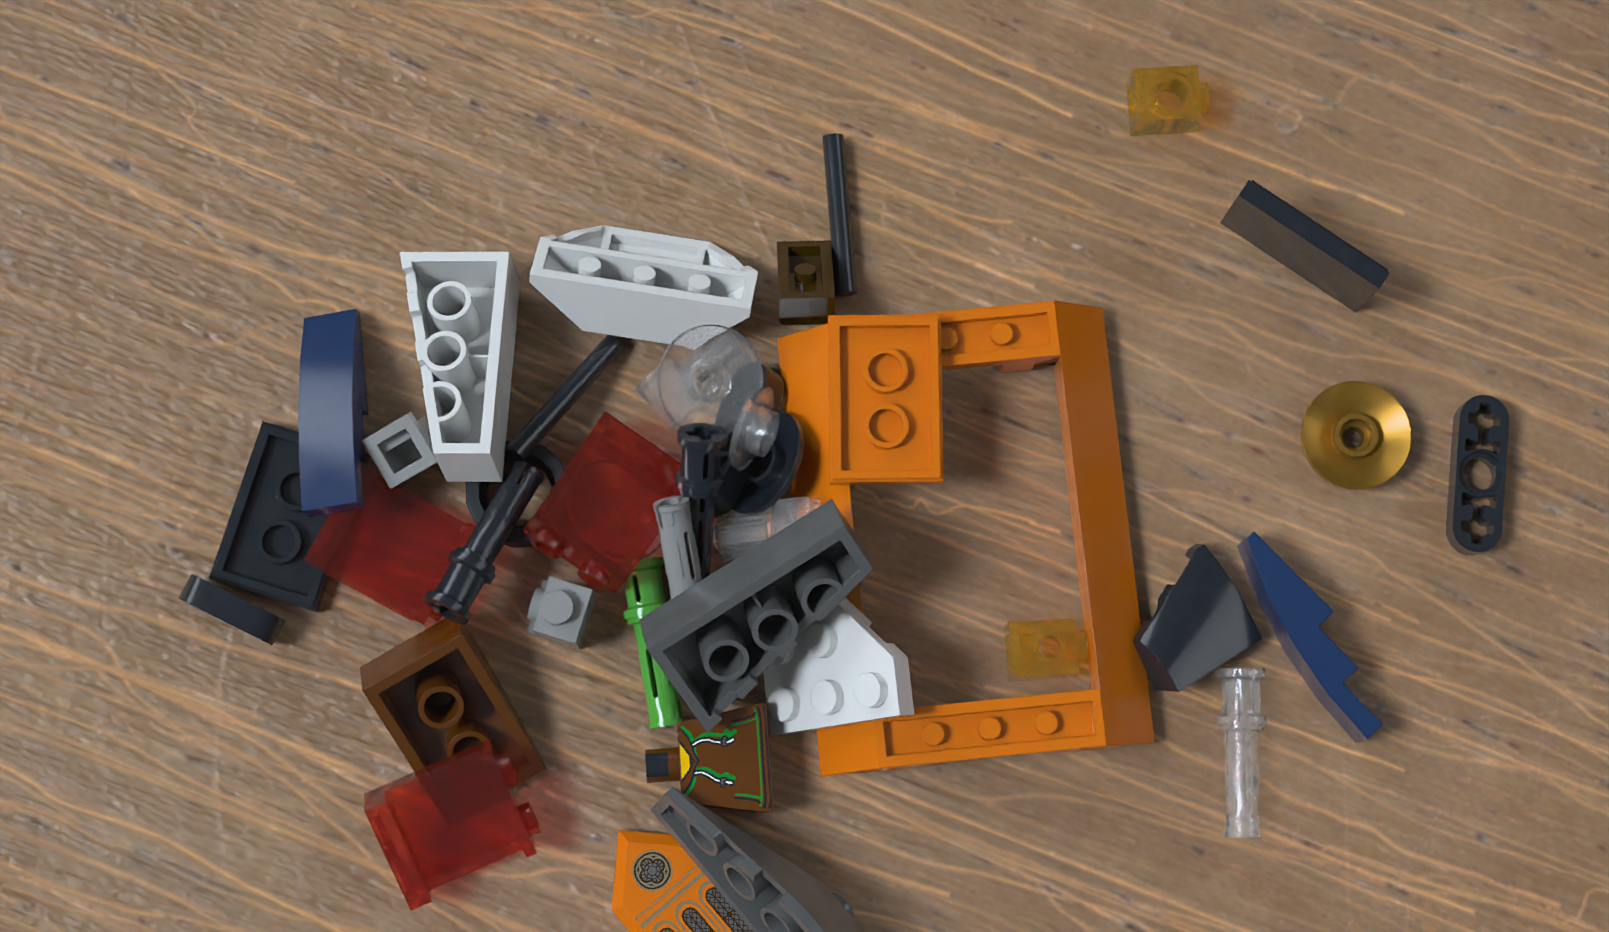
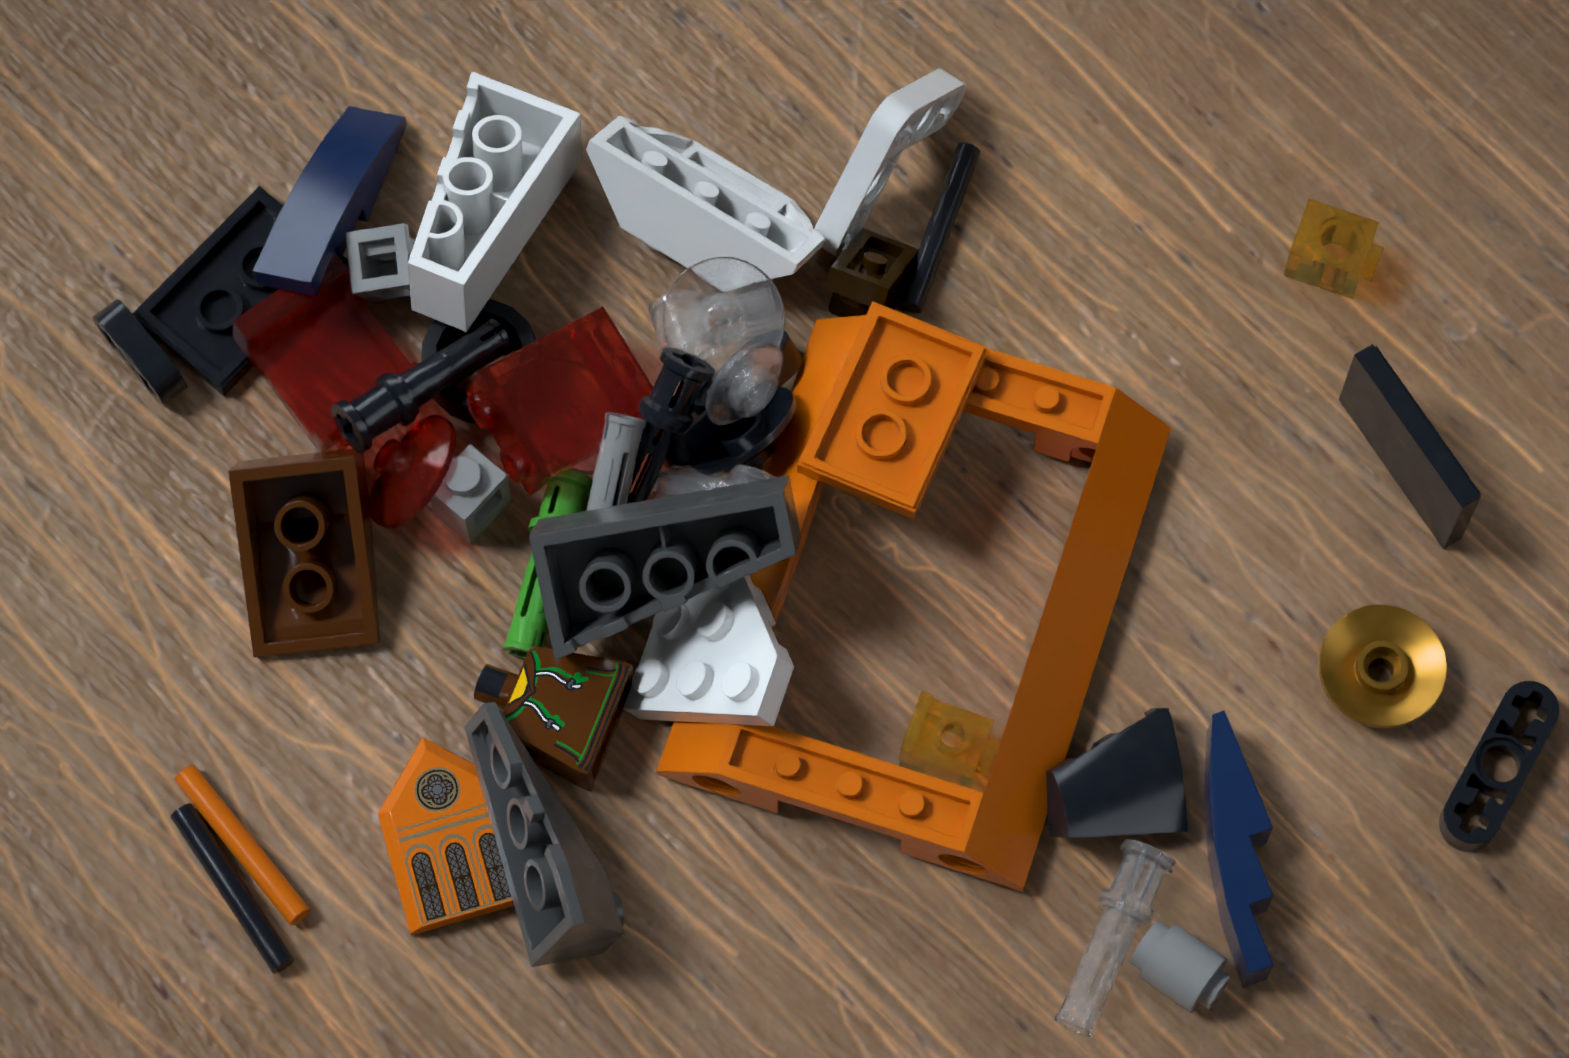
camera: 30 degrees right, 10 degrees down
(450, 820) = (256, 647): clear red panel -> none
(510, 617) = (411, 470): none -> clear red dish
(564, 398) = (570, 284): black bar -> none
(773, 175) = (895, 125): none -> white beam
(1306, 752) = (1180, 966): none -> light grey brick

